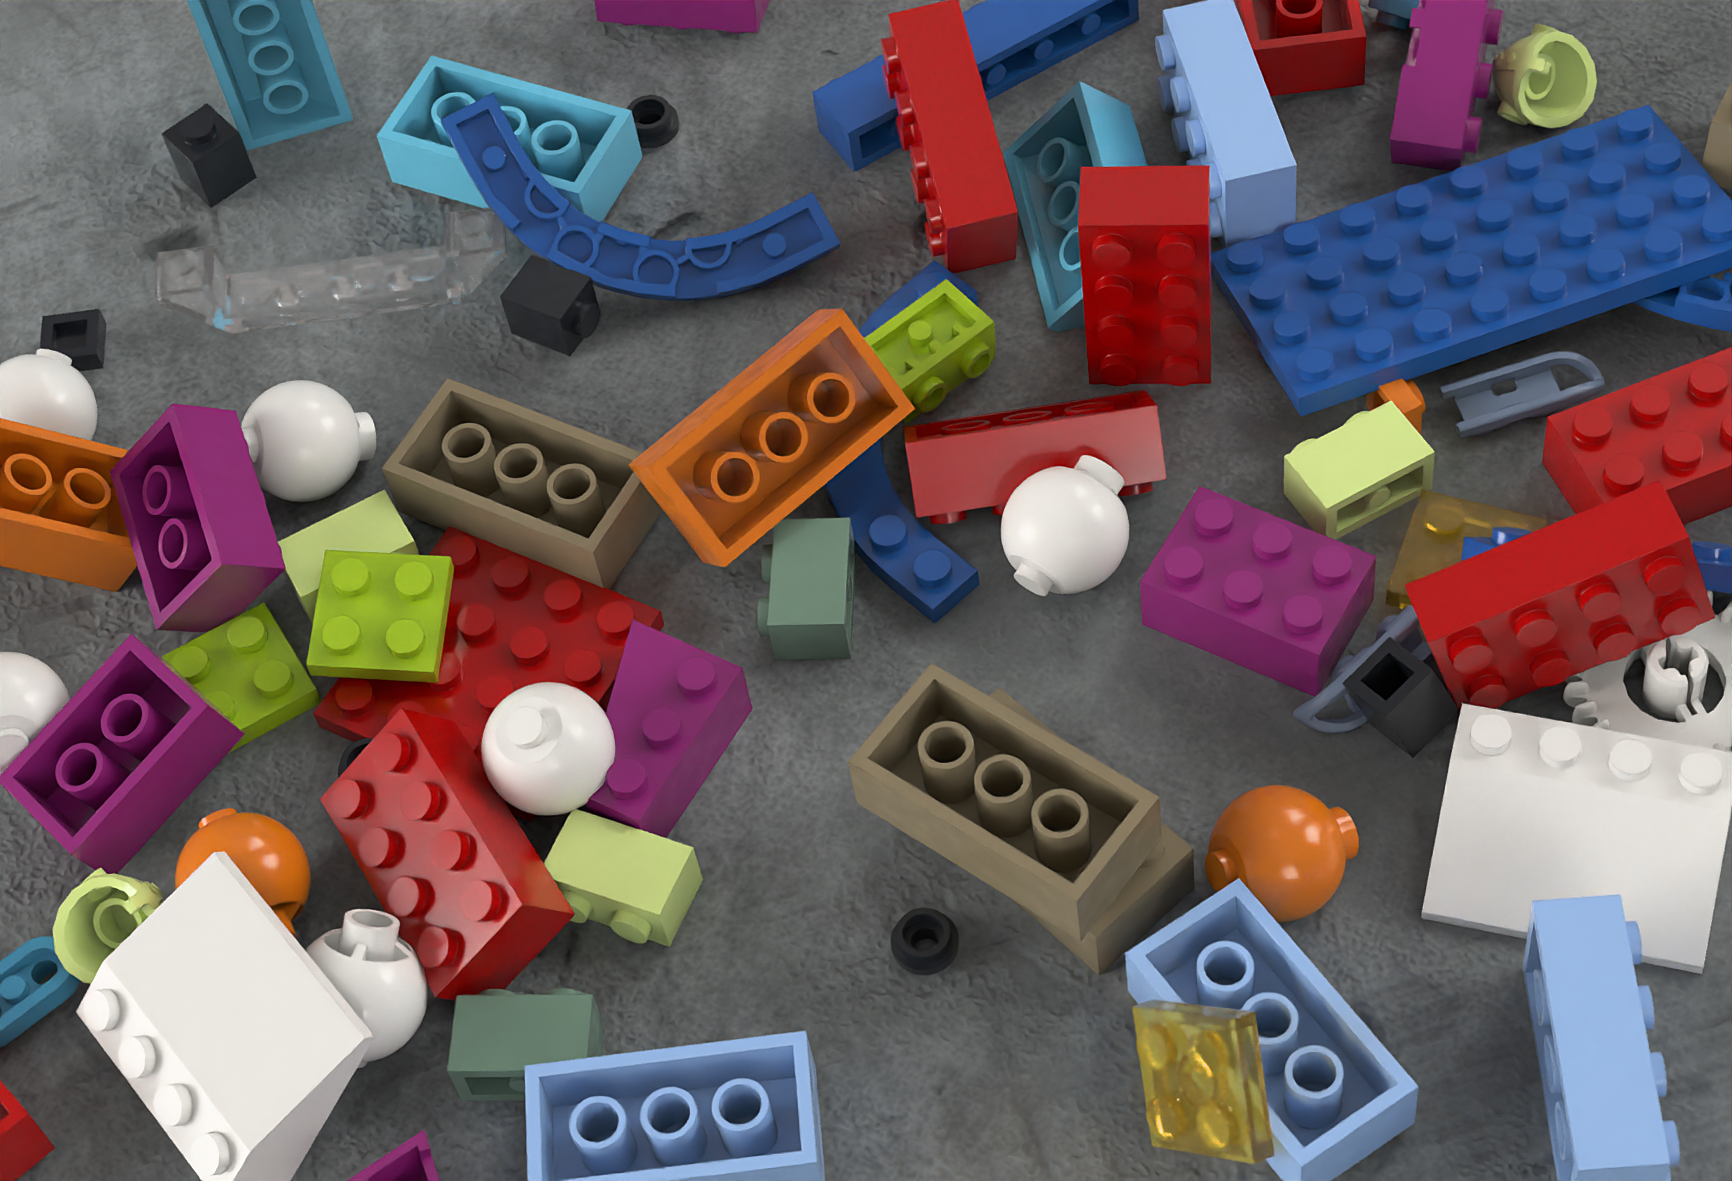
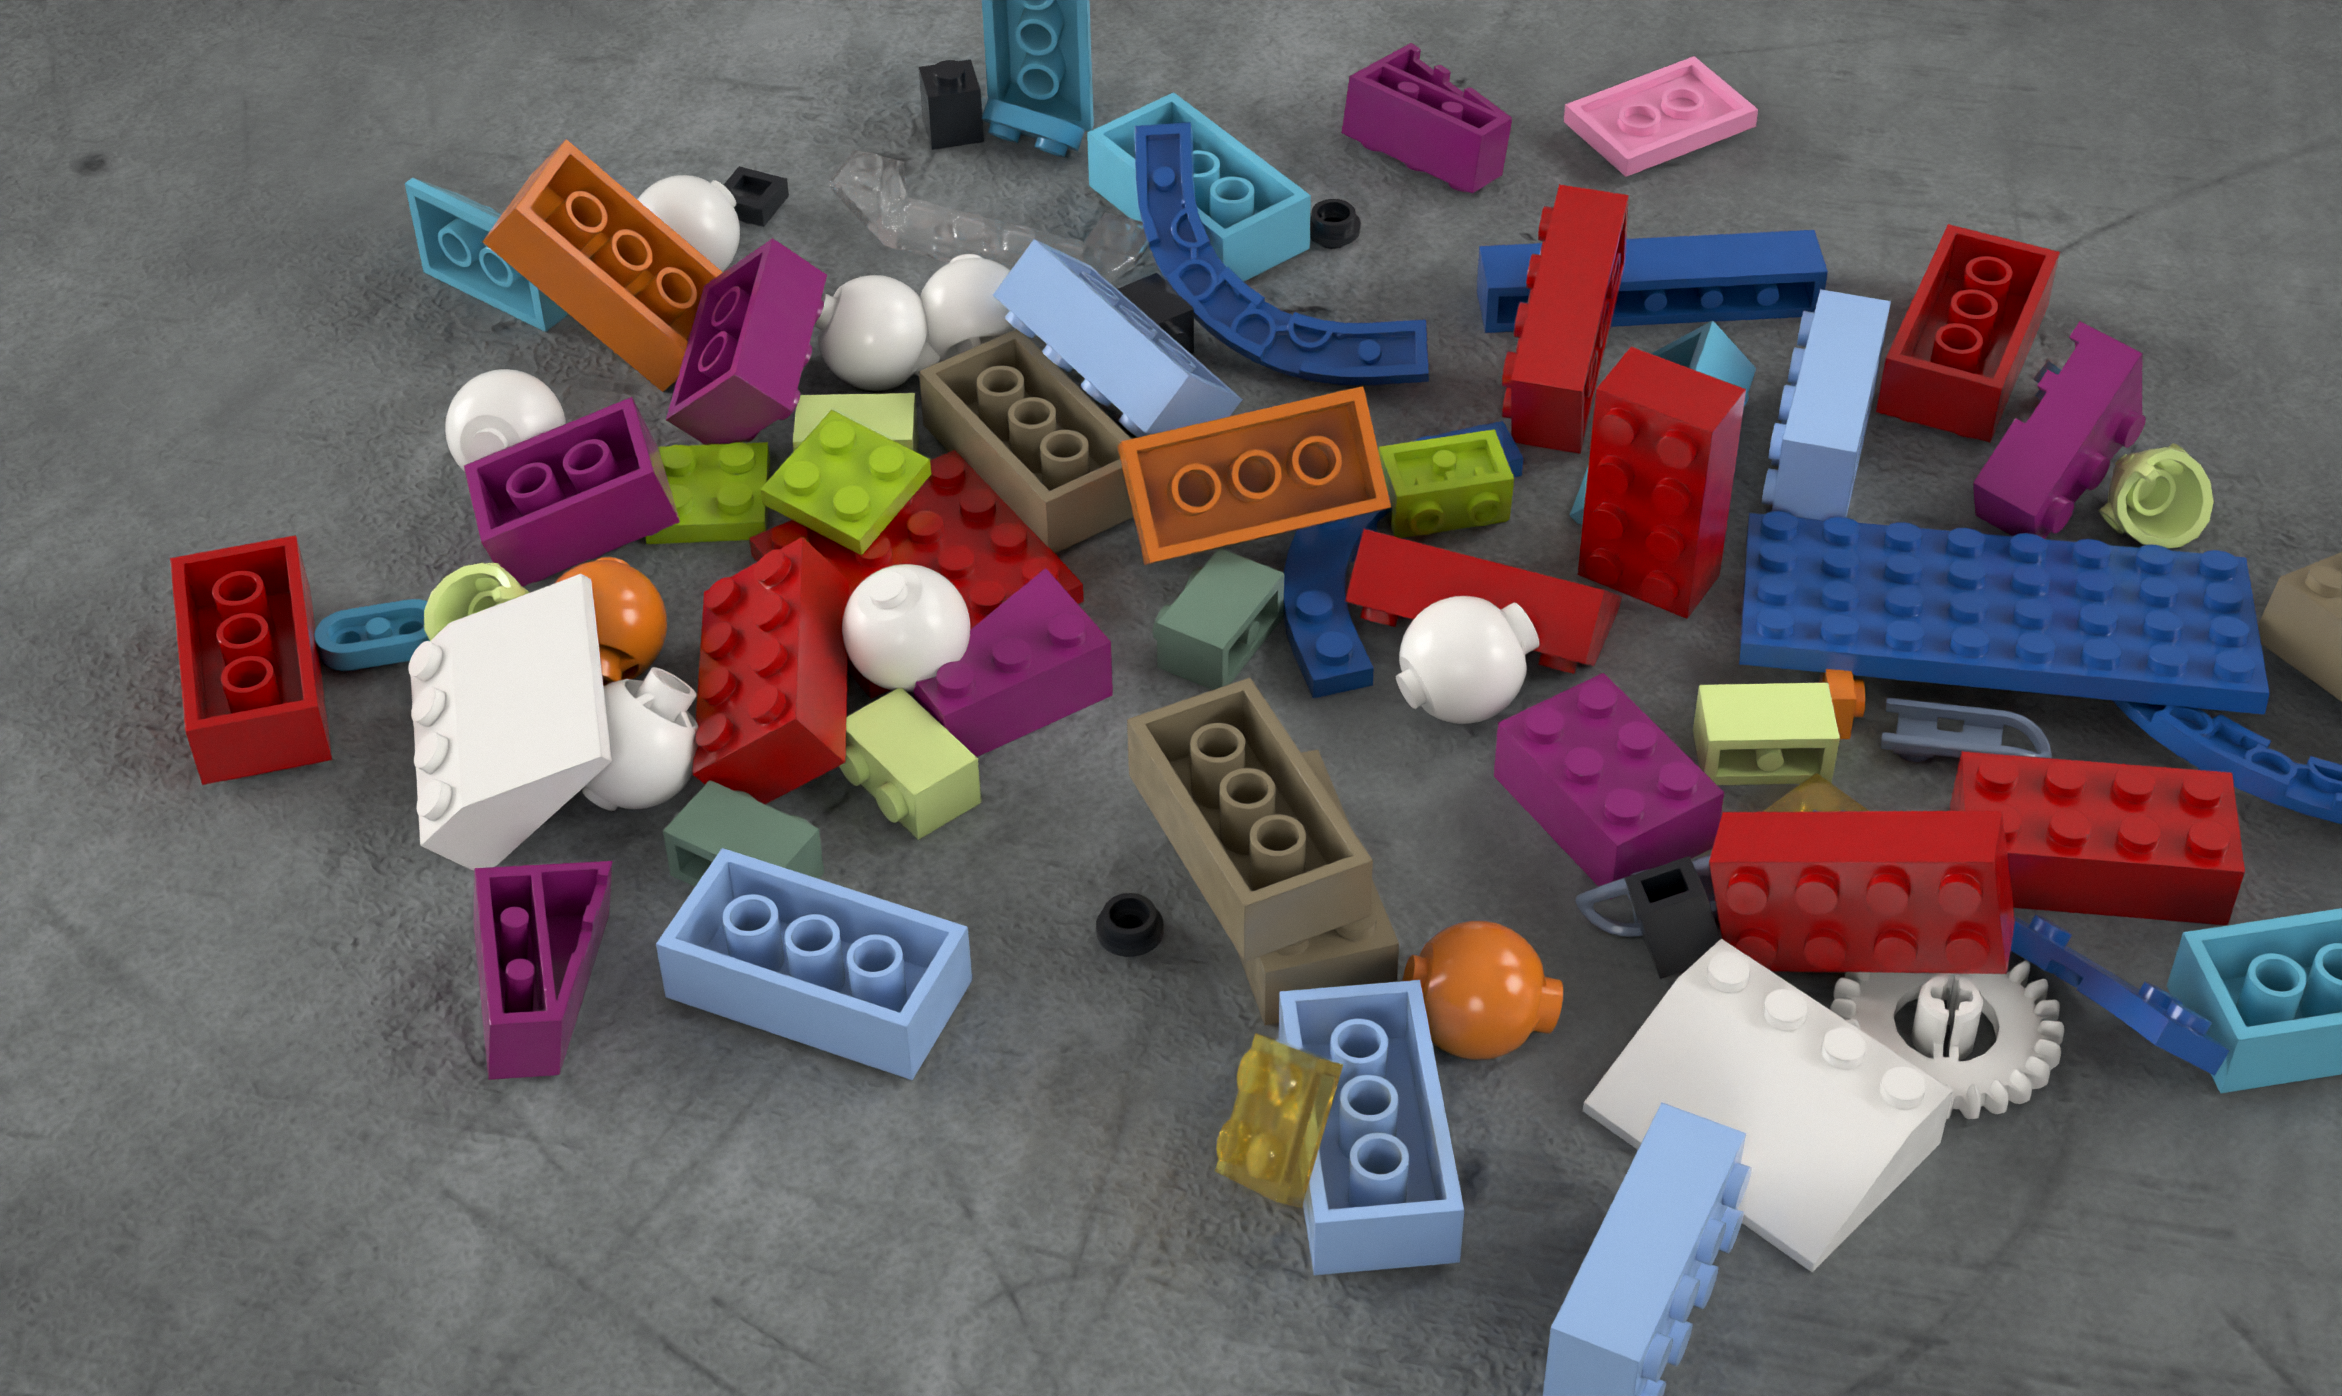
camera: 20 degrees right, 10 degrees down
(326, 144) = (1051, 133): none -> dark azure plate
(385, 373) = (962, 305): none -> white brick
(551, 358) = (1110, 344): none -> light blue brick

